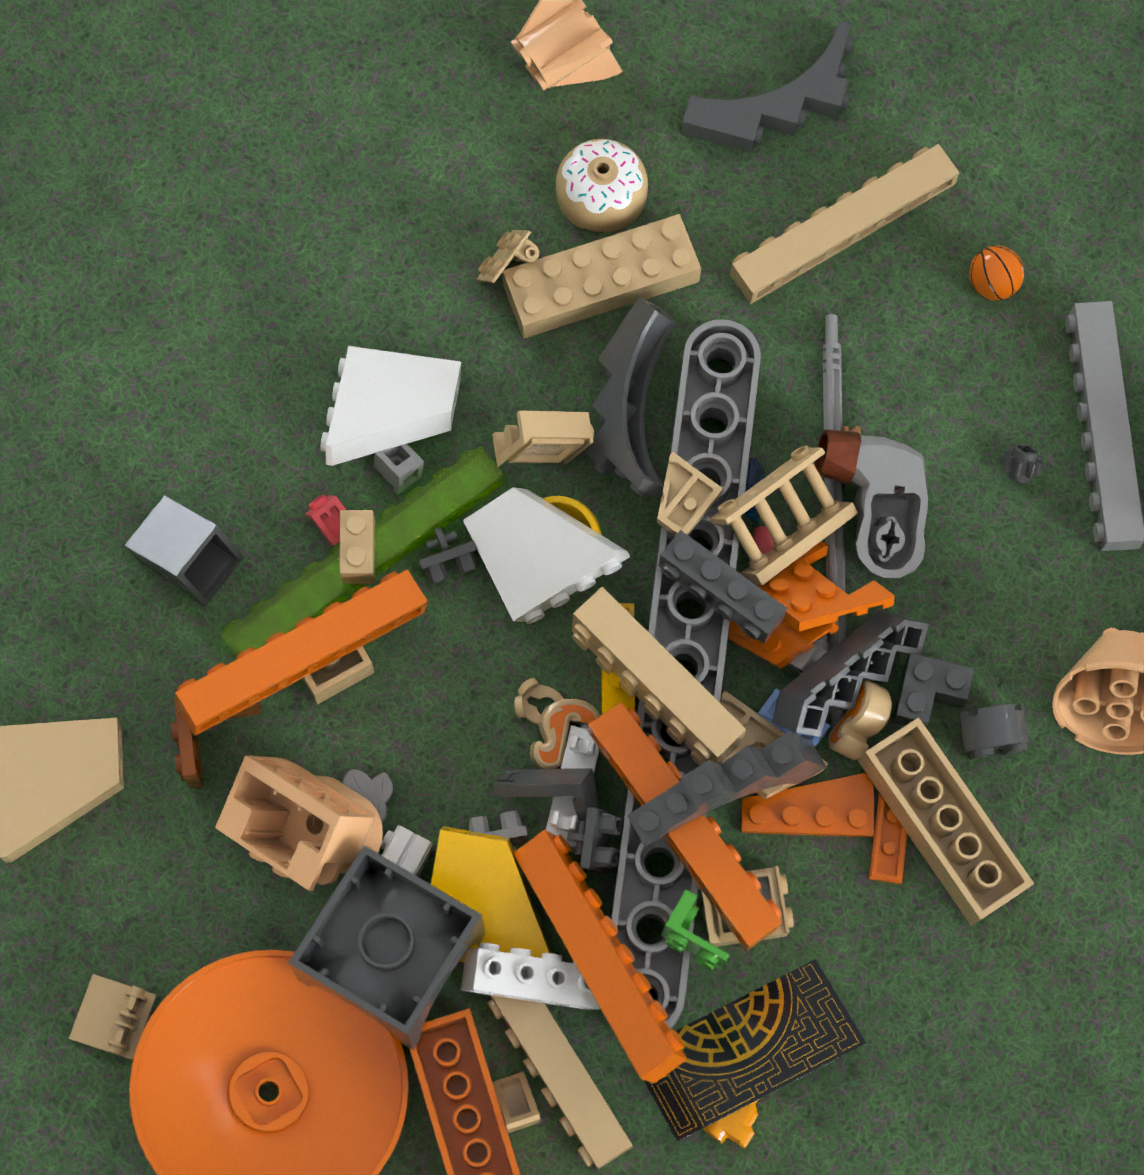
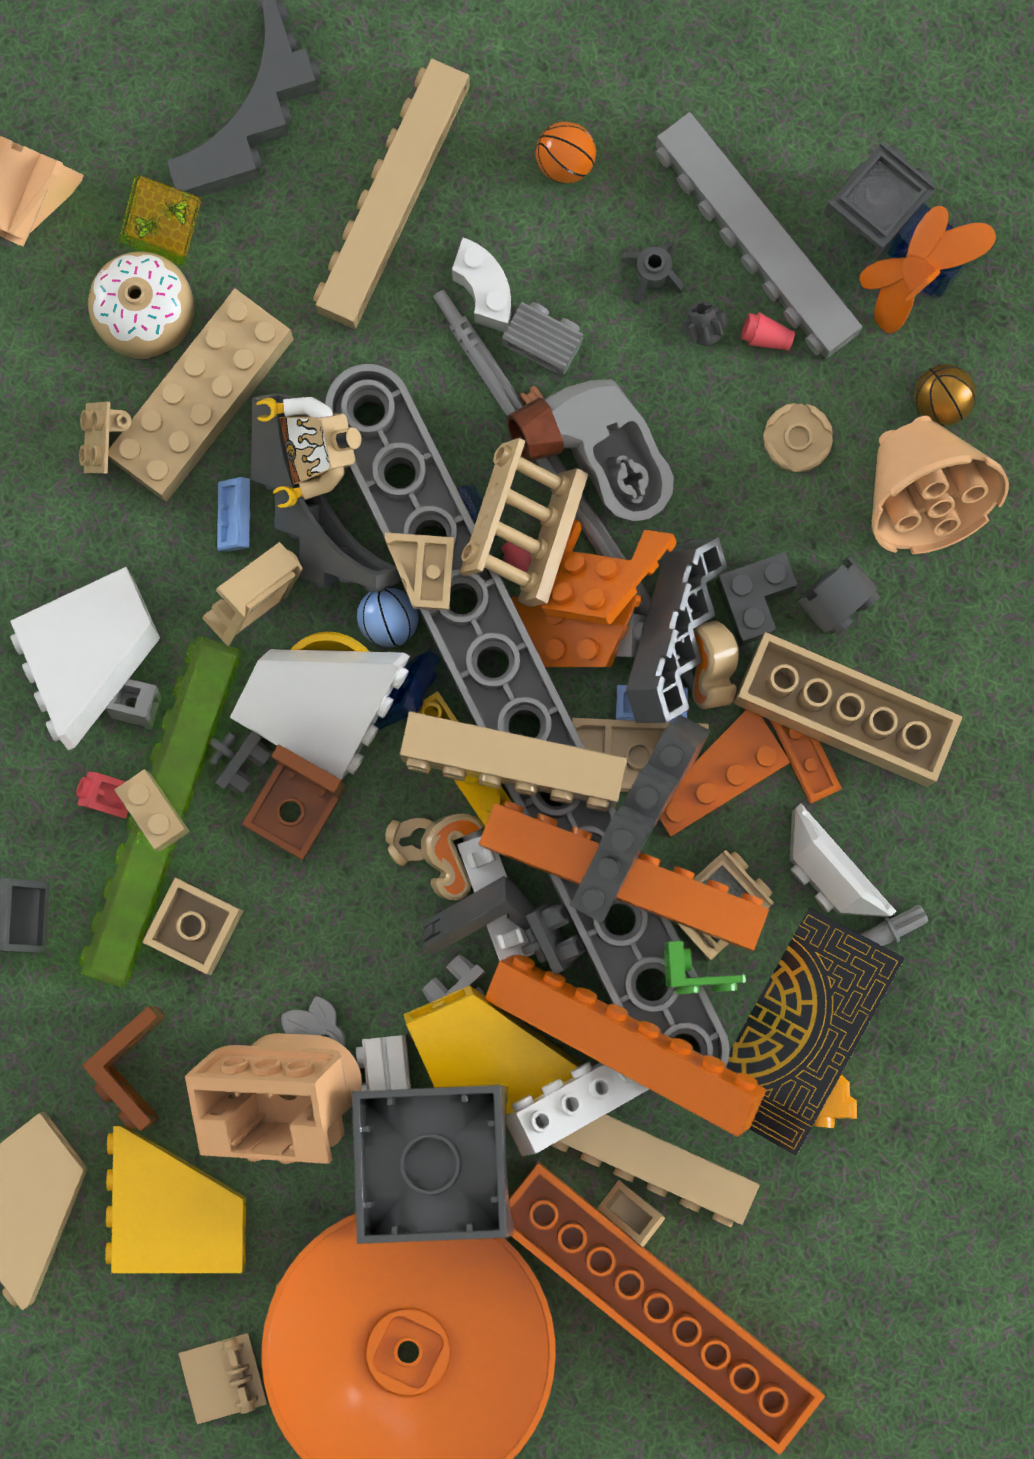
camera: 30 degrees left, 10 degrees up
(161, 861) = (169, 1212): none -> yellow slope
(299, 652) = (168, 947): orange brick -> none
(485, 605) = (300, 783): none -> dark orange bracket
(567, 377) = (233, 514): none -> light blue plate
(624, 583) = (409, 695): none -> clear blue wing
(632, 523) = (387, 617): none -> light blue piece
(657, 133) = (159, 219): none -> clear neon green tile
(663, 359) = (315, 443): none -> torso
(722, 587) = (513, 632): dark grey brick -> none
(851, 941) = (831, 871): none -> white wedge
(872, 329) = (485, 282): none -> white brick
(877, 1018) = (897, 926): none -> light grey axle
(889, 396) = (543, 337): none -> light grey brick
(1008, 399) = (651, 277): none -> dark grey brick
(1037, 603) = (798, 437): none -> tan tile
(1066, 501) = (766, 332): none -> coral cone

